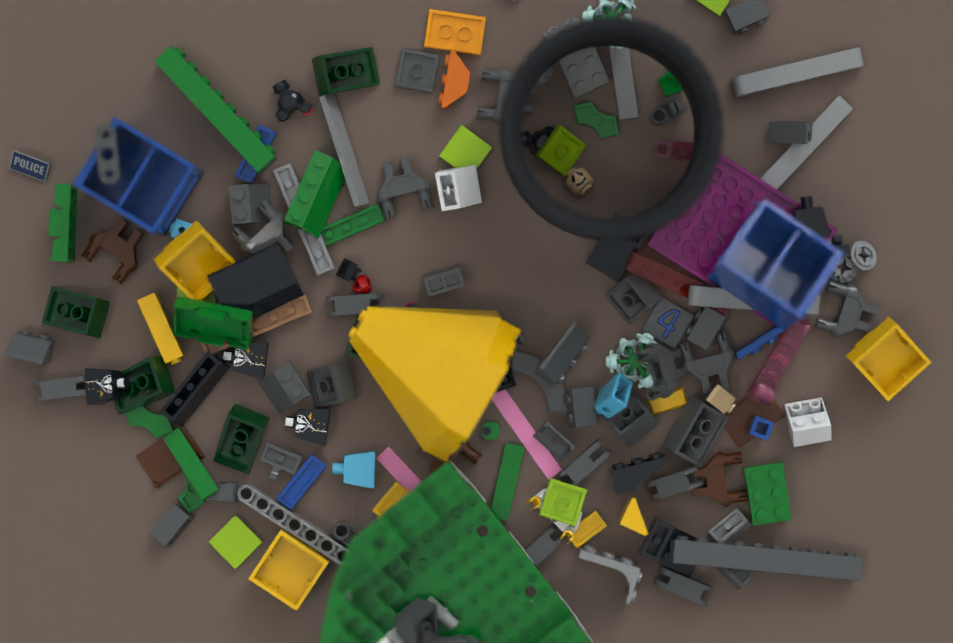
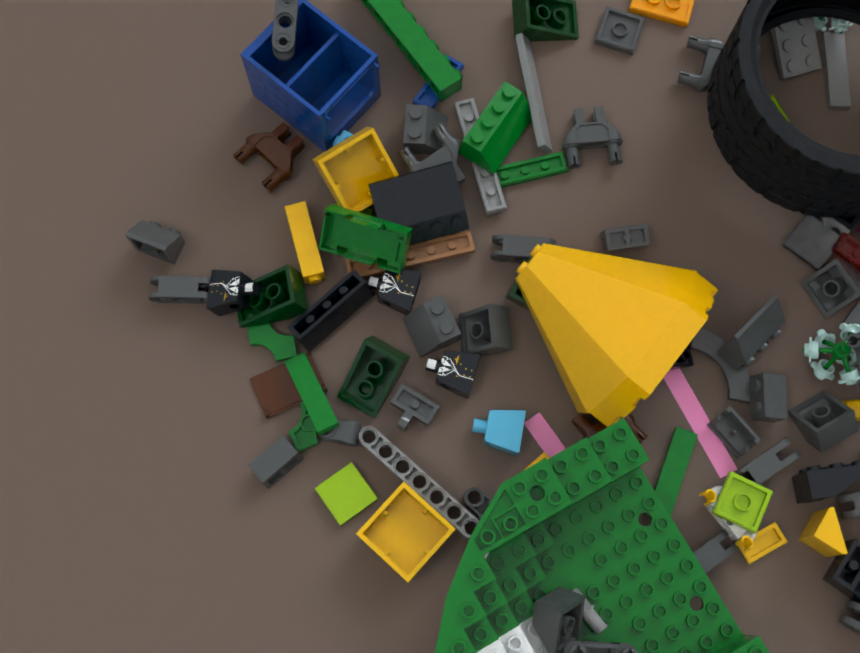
camera: 10 degrees right, 15 degrees down
(30, 166) = (198, 61): slope -> none
(63, 223) = (223, 113): green piece -> none
(76, 312) = (216, 212): dark green slope -> none
(290, 101) = (482, 37): black animal -> none
(301, 482) = (434, 435): blue plate -> none
(347, 270) = (519, 213): black tile -> none
(365, 284) = (534, 230): red tile -> none
(455, 81) = (659, 43): orange slope -> none
(458, 187) = (653, 143): white slope -> none
(465, 149) = (662, 114): lime tile -> none
(490, 430) = (659, 411): green tile -> none
(603, 124) = (797, 98): green tile -> none
(613, 396) = (809, 389): medium azure torso -> none
(624, 564) = (813, 596): light grey bracket -> none

